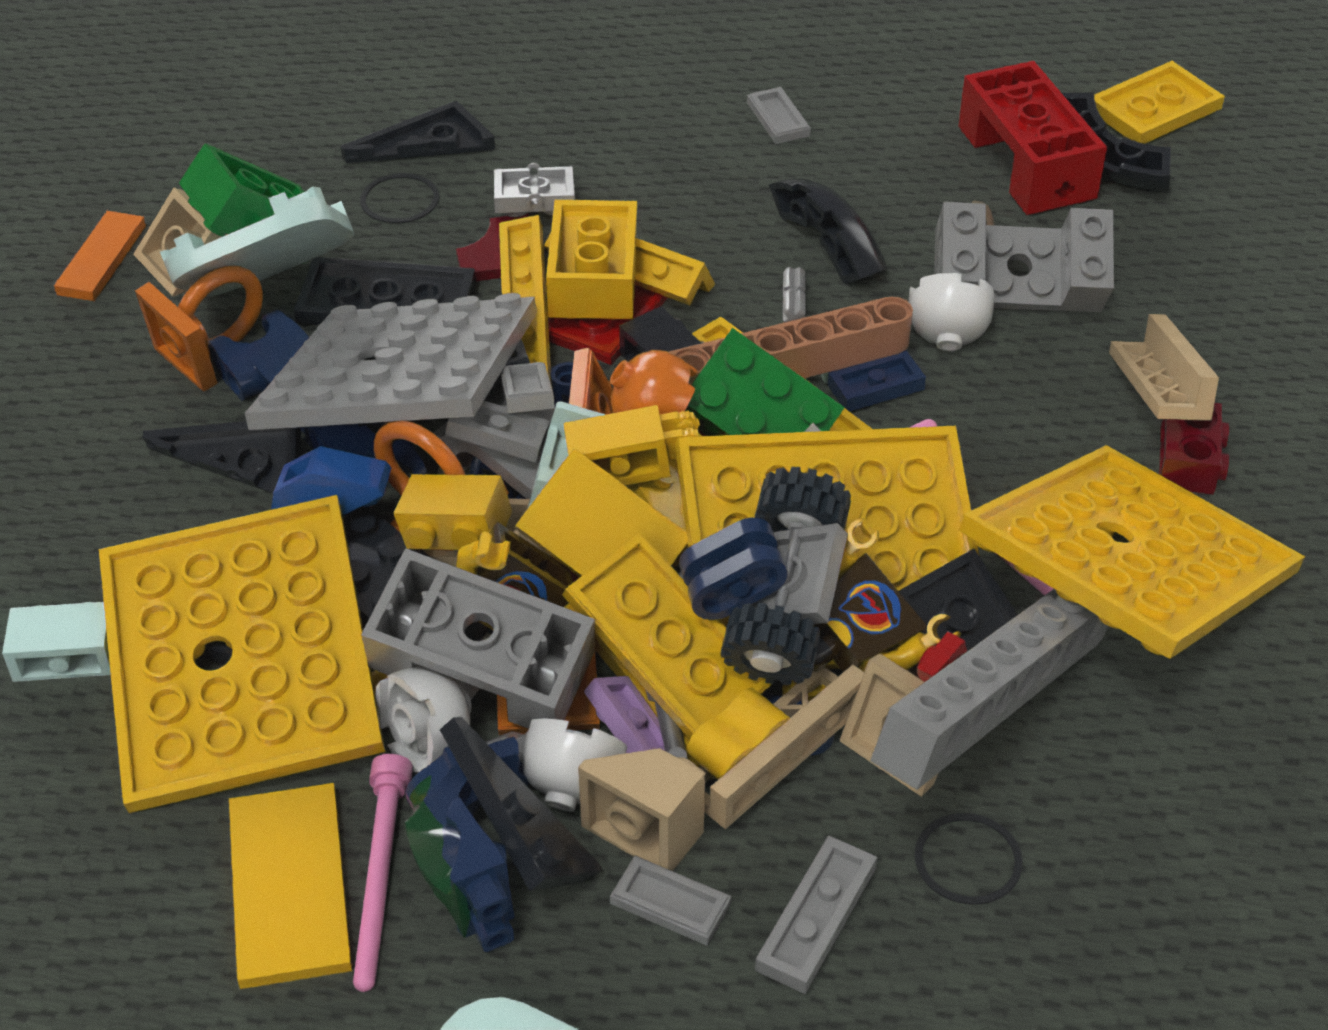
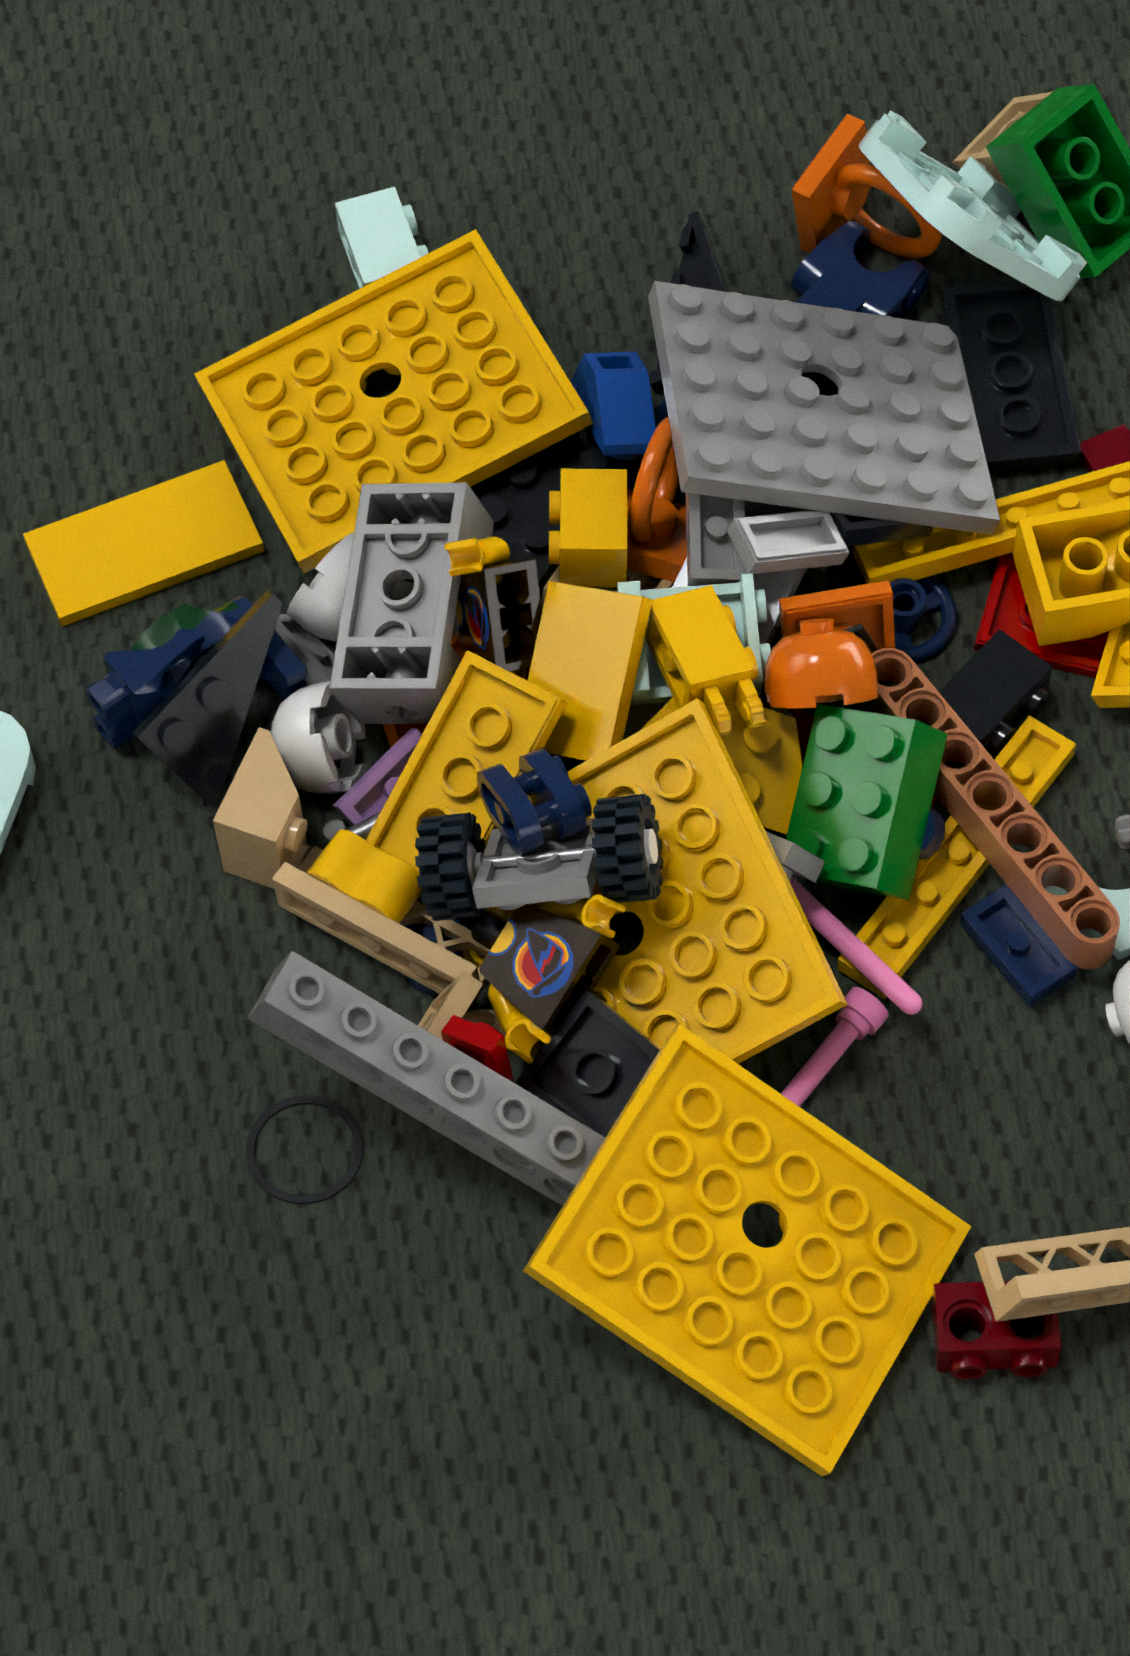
camera: 80 degrees right, 15 degrees up
(100, 256) = (996, 65): orange tile -> none
(389, 781) = (280, 583): bright pink piece -> none
(671, 900) = (187, 880): light grey tile -> none
(815, 914) = (186, 1008): light grey plate -> none

